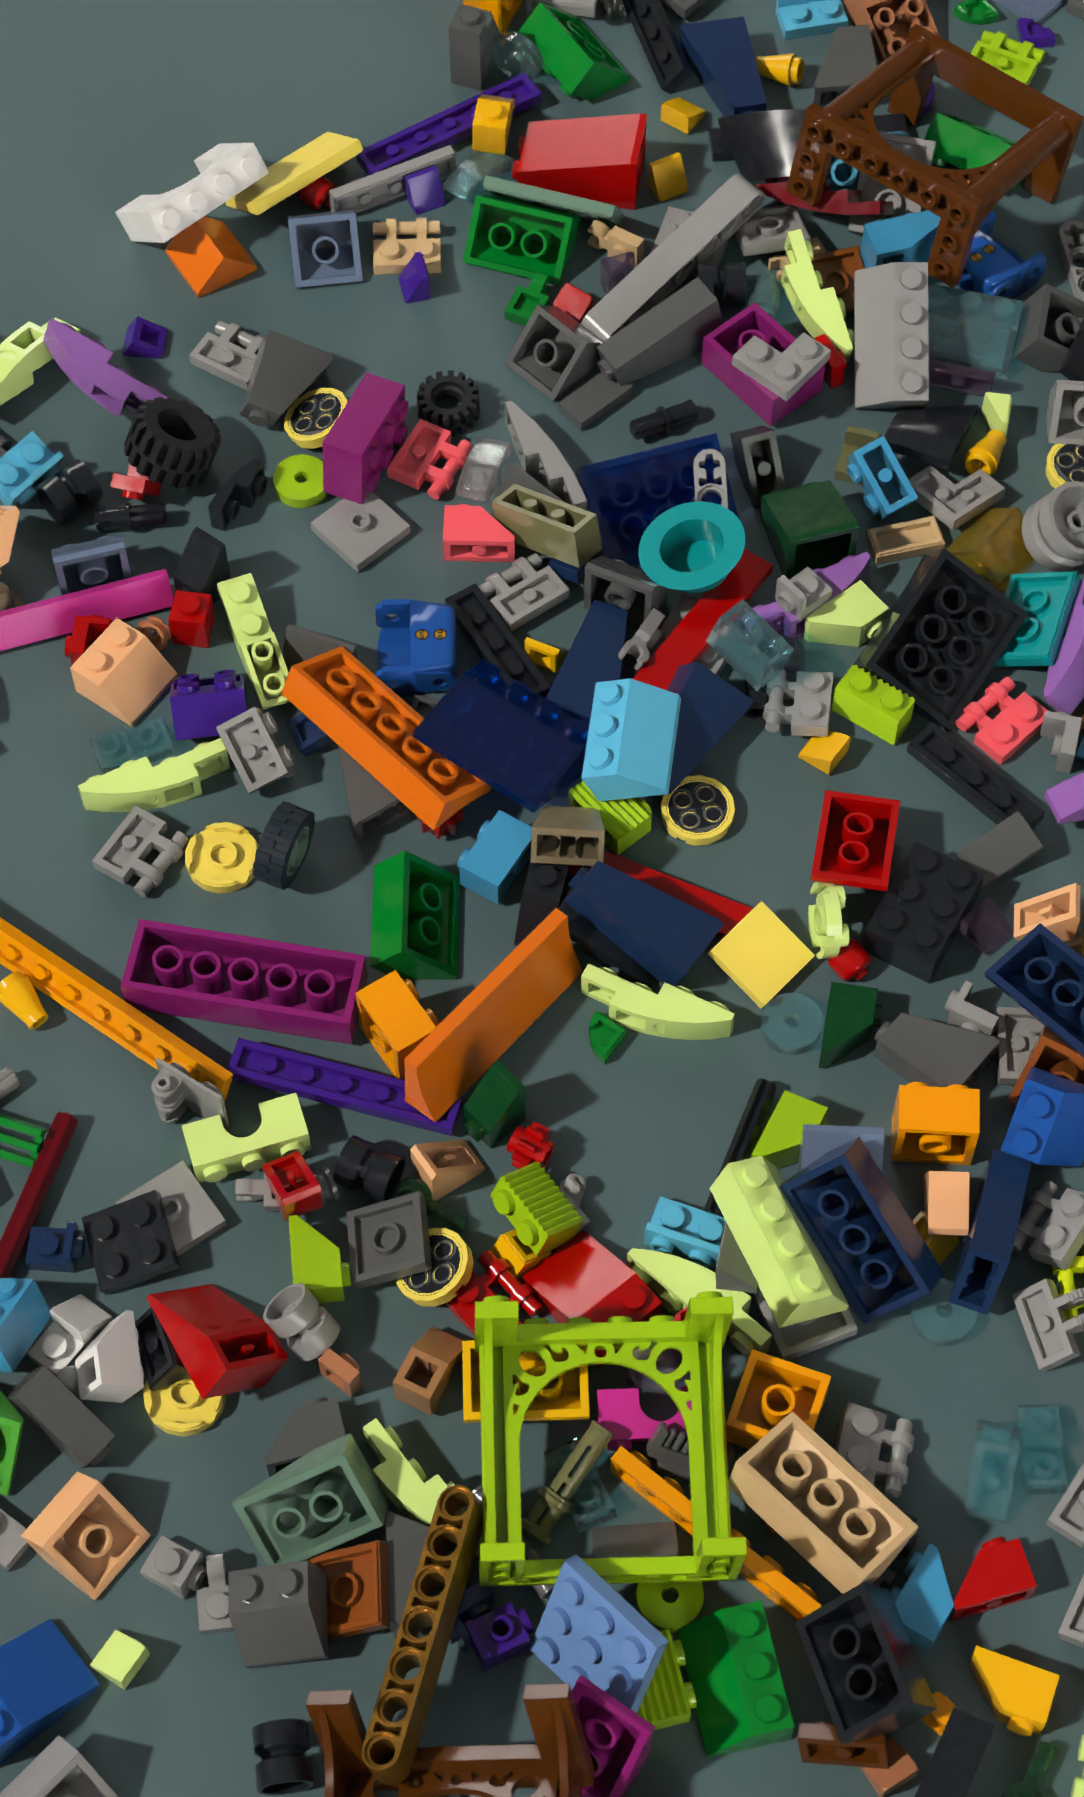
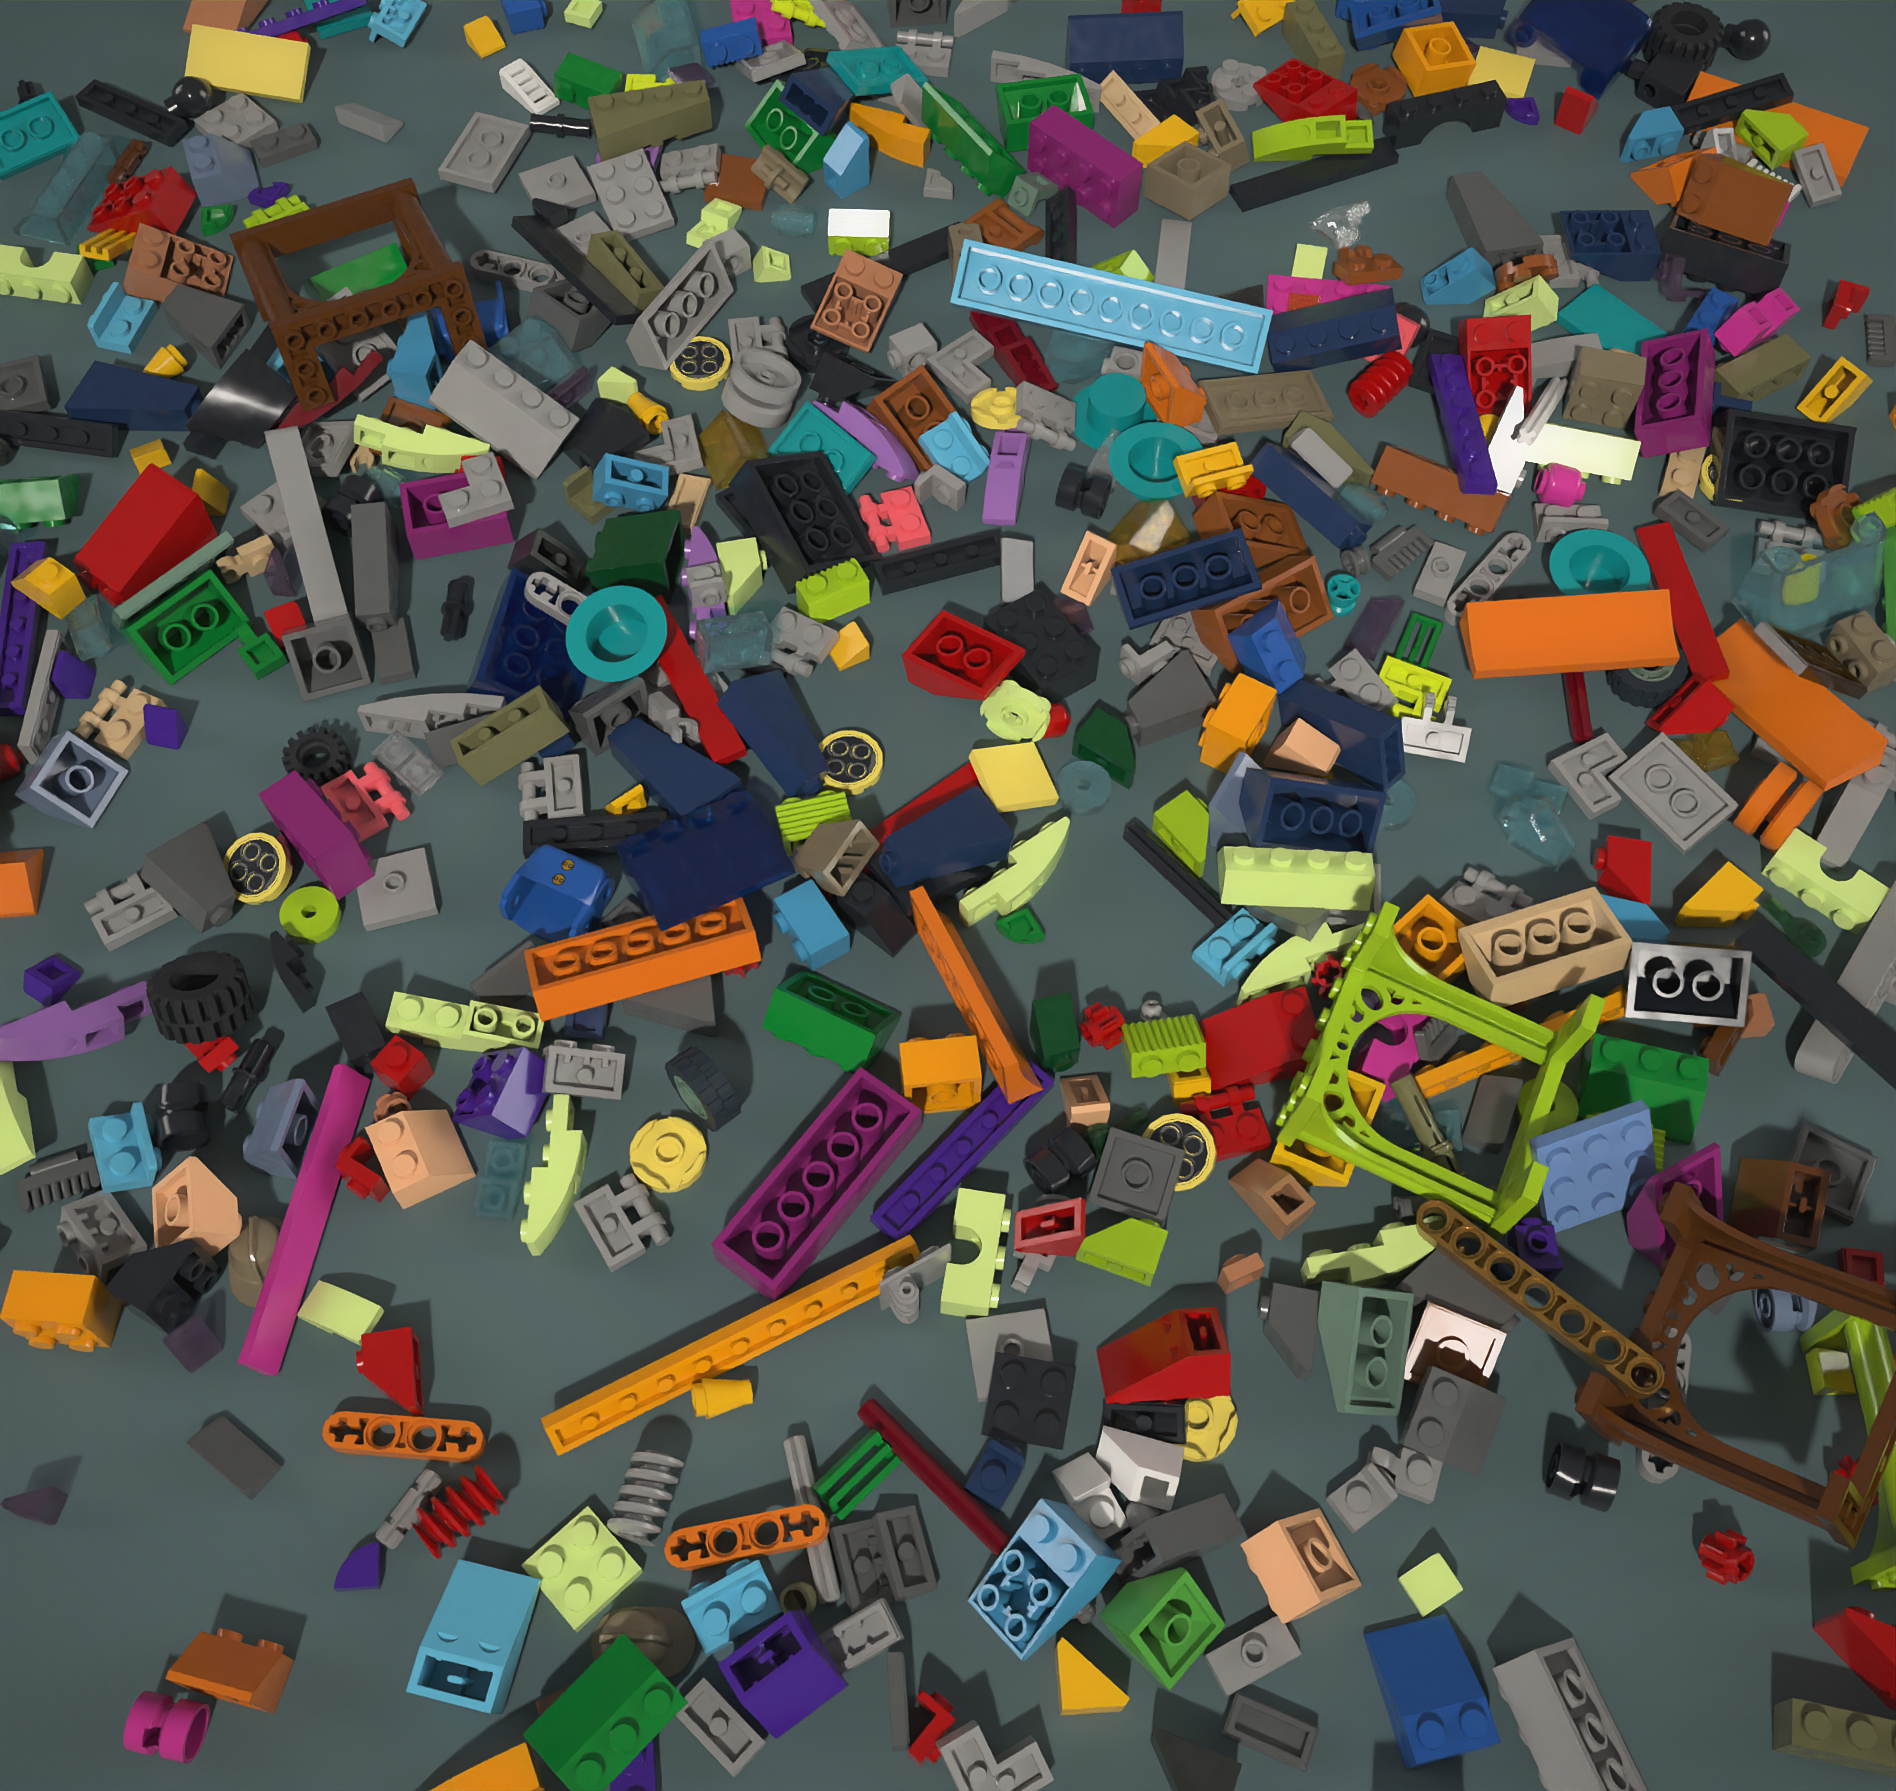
camera: 65 degrees left, 0 degrees up
(301, 1322) = (1186, 1281): light grey wheel -> none
(475, 536) = (472, 800): coral slope -> none
(630, 740) = (778, 763): medium azure slope -> none

